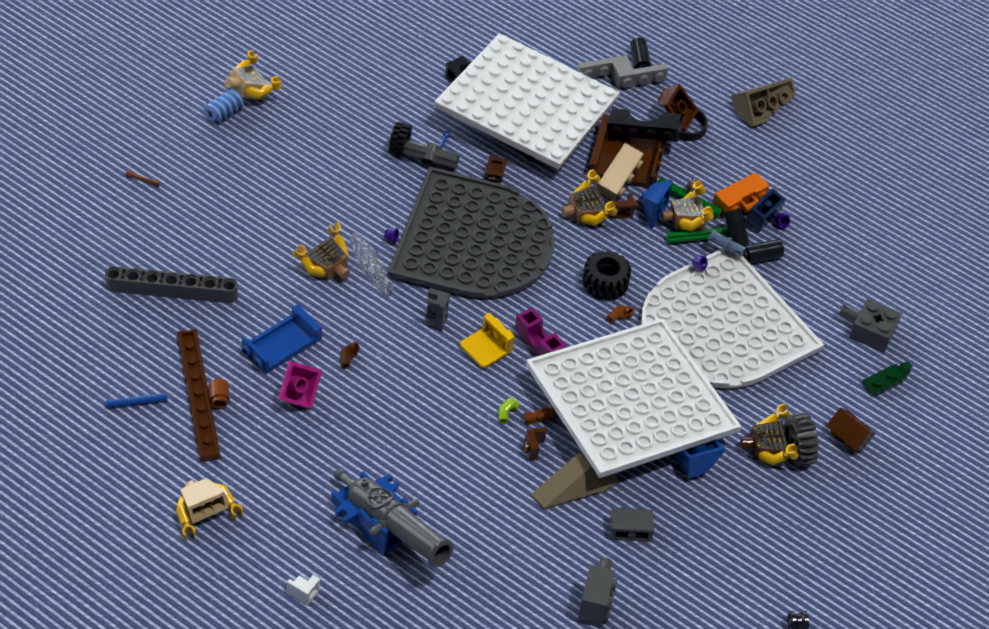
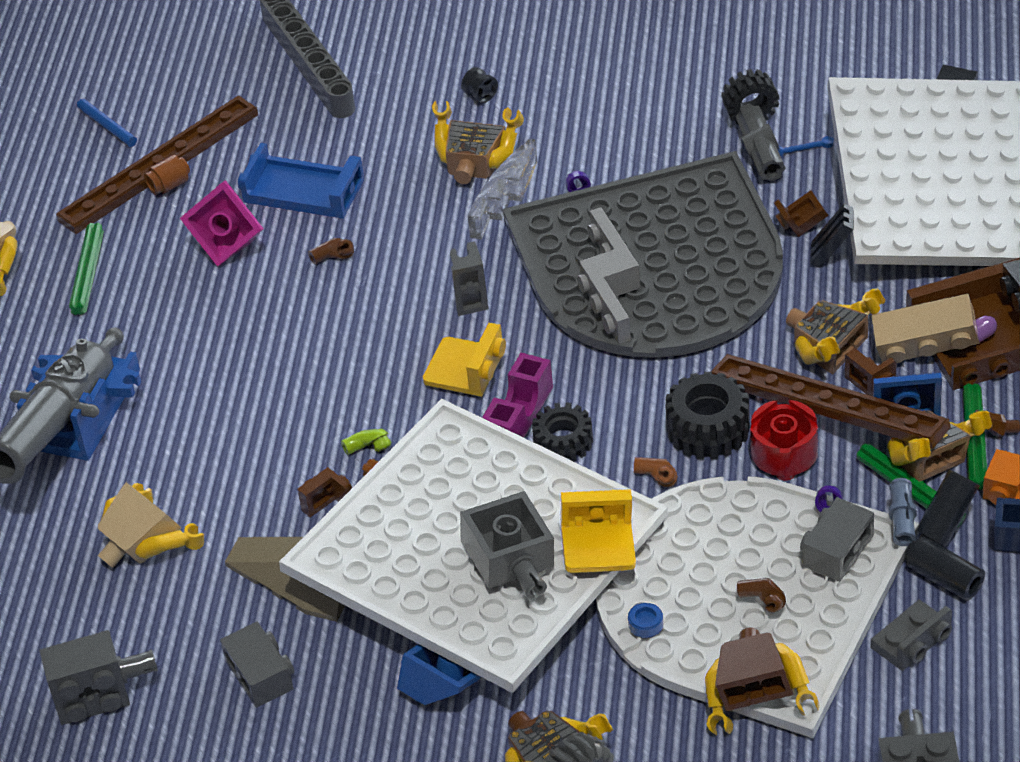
camera: 70 degrees right, 5 degrees down
(260, 465) = (86, 269): none -> green axle
(276, 231) = (479, 84): none -> black wheel
(485, 253) = (609, 275): none -> light grey bracket
(497, 529) = (141, 527): none -> tan torso
(528, 183) = (832, 235): none -> black tile
(572, 325) = (564, 419): none -> black tyre
(637, 228) = (834, 401): none -> reddish brown tile
(646, 257) = (784, 438): none -> red brick
(663, 379) = (508, 542): none -> dark grey brick
(671, 348) = (597, 531): none -> yellow bracket
(720, 365) = (645, 620): none -> blue tile
(728, 272) = (837, 539): none -> dark grey brick
(738, 314) = (766, 590): none -> reddish brown arm
(788, 343) = (752, 673): none -> reddish brown torso
(790, 283) = (912, 634): none -> dark grey bracket

